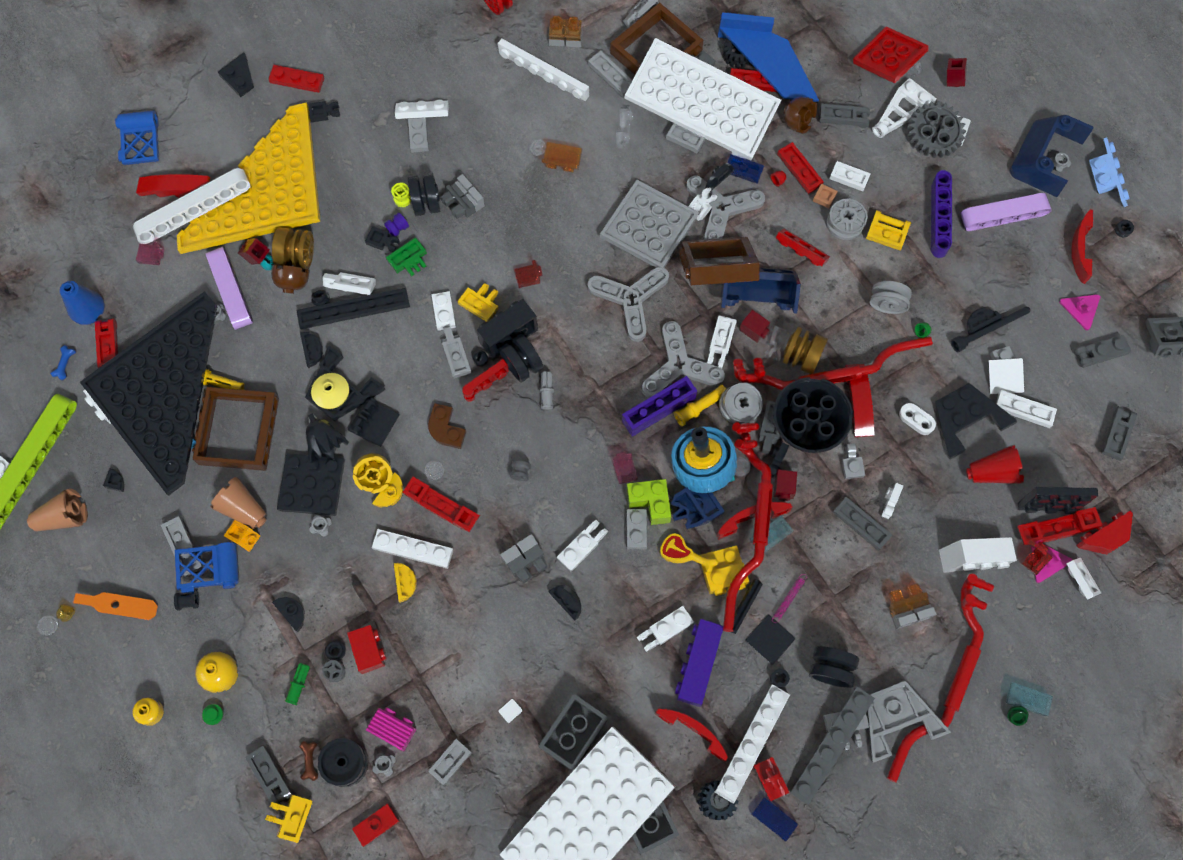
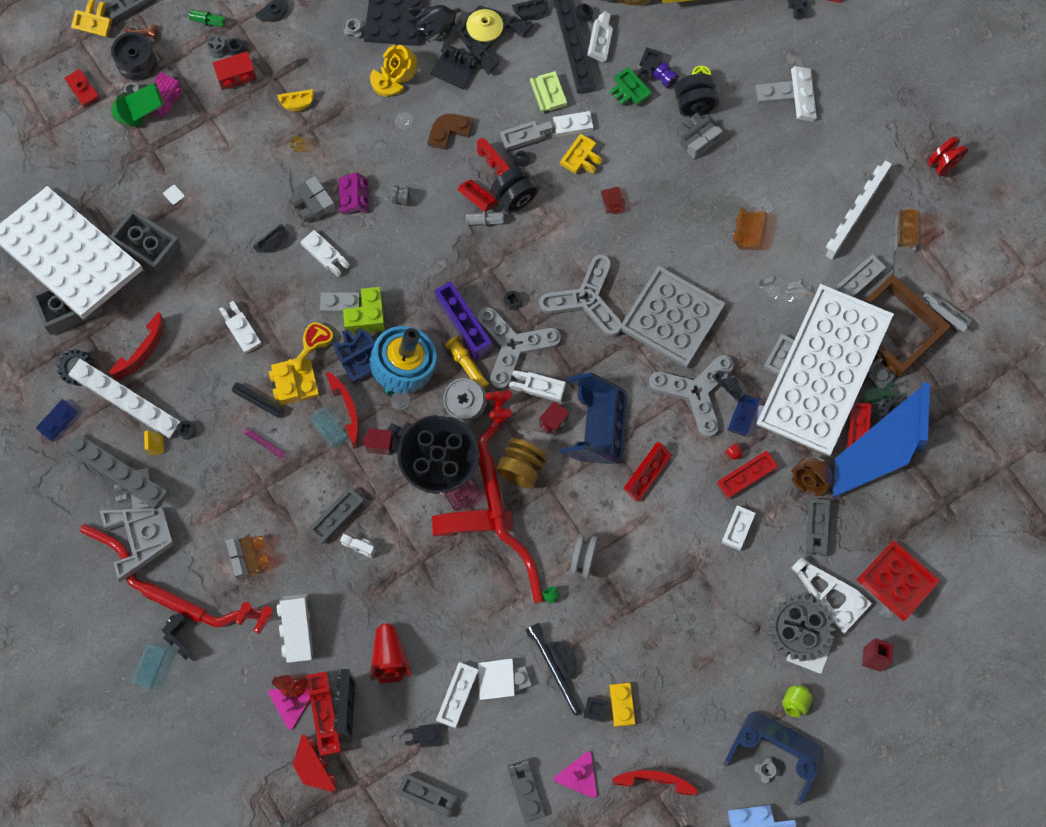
camera: 90 degrees right, 0 degrees up
(408, 332) = (548, 92): none -> yellowish green plate
(410, 760) = (132, 108): none -> green piece
(412, 548) = (328, 106): white plate -> none
(440, 505) = (370, 126): red slope -> none
(450, 762) = (130, 143): light grey plate -> none
(462, 577) = (297, 140): none -> clear yellow hinge
(505, 326) = (553, 184): black brick -> none
(516, 518) = (353, 194): none -> magenta bracket
(521, 397) = (477, 195): none -> red plate
(624, 468) = (402, 291): clear pink bracket -> none
(629, 360) = (516, 305): none -> black bush
(700, 662) = (204, 355): dark purple brick -> none
(701, 203) = (695, 368): white plate -> none
(722, 272) = (595, 376): reddish brown window -> none
(723, 63) = (876, 395): none -> clear green plate
(762, 518) = (339, 409): red piece -> none
(770, 639) = (225, 424): black sticker -> none
(771, 779) = (90, 414): red hips -> none
(796, 710) = (154, 443): none -> yellow slope
(825, 196) = (712, 499): nougat plate -> none
(834, 667) = (188, 473): black wheel -> none
(846, 219) = (677, 530): light grey wheel -> none
(853, 465) = (399, 511): light grey plate -> none
(886, 234) = (665, 563): yellow plate -> none
(918, 418) = (448, 580): white plate -> none
(940, 221) = (701, 619): dark purple beam -> none
(964, 409) = (457, 628): black wing -> none
(986, 675) = (174, 625): none -> black bracket
(1000, 135) = (797, 701): none -> lime head
(1005, 212) = (697, 698): lavender beam -> none
(1016, 273) = (622, 705): none -> yellow plate
(1017, 715) = (133, 652): dark green plate -> none
(1025, 292) = (595, 709): none -> black plate
(1065, 436) = (427, 736): none -> black plate
(1086, 583) = (267, 735): white plate -> none

